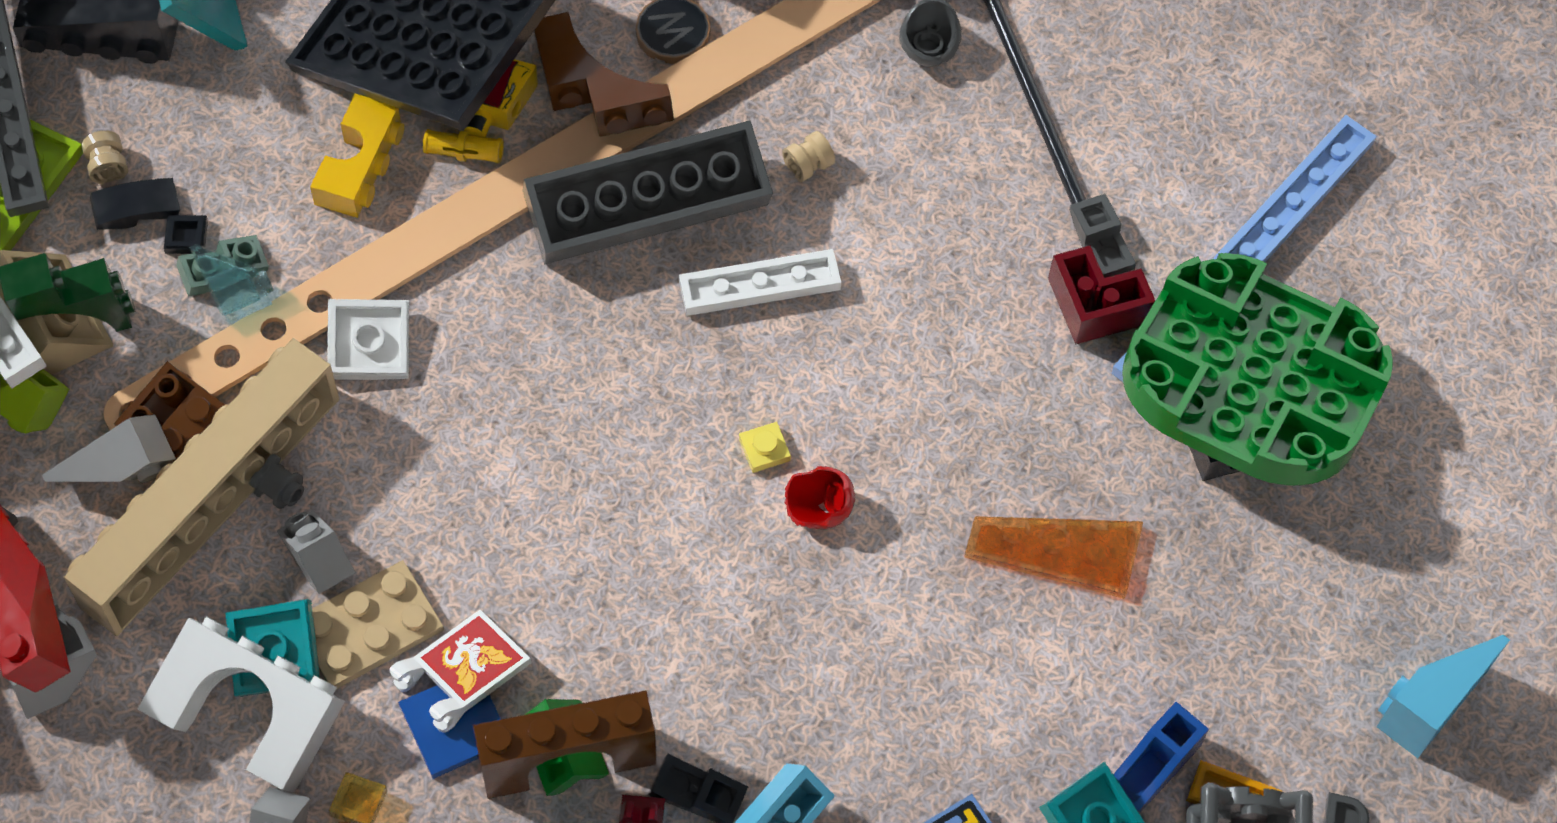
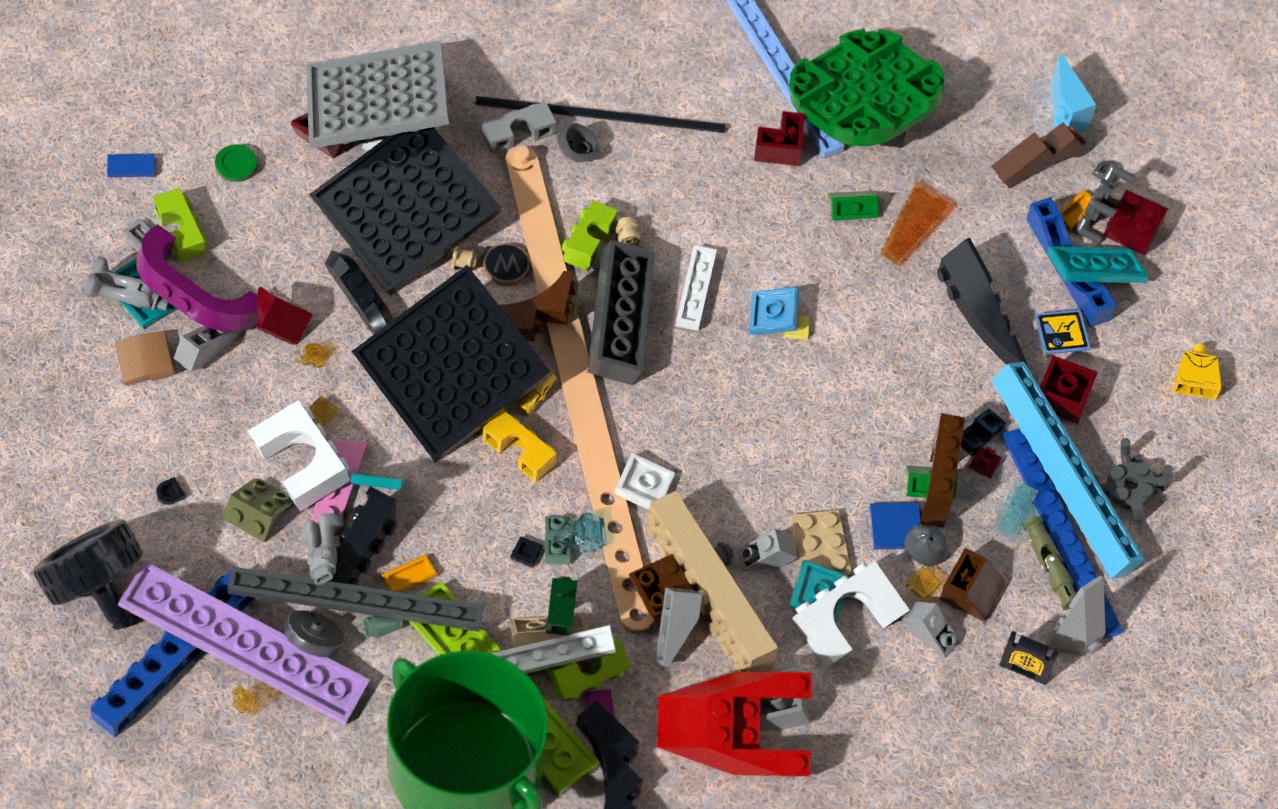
camera: 70 degrees left, 5 degrees down
(84, 106) = (410, 574): none -> light orange tile
(104, 156) = (455, 573): tan wheel -> none
(133, 201) = (494, 569): black slope -> none
(429, 778) = (926, 545): none -> dark grey hair
(465, 665) = (866, 505): flag -> none
(769, 402) = (774, 311): none -> dark azure plate
(802, 104) = (582, 247): none -> lime arch
(810, 489) = (844, 303): red hair -> none
(942, 694) = (970, 289): none -> black wedge
(1041, 444) = (853, 205): none -> green panel
(1100, 227) = (742, 127): dark grey slope -> none
(1297, 680) = (1038, 152): none -> reddish brown arch

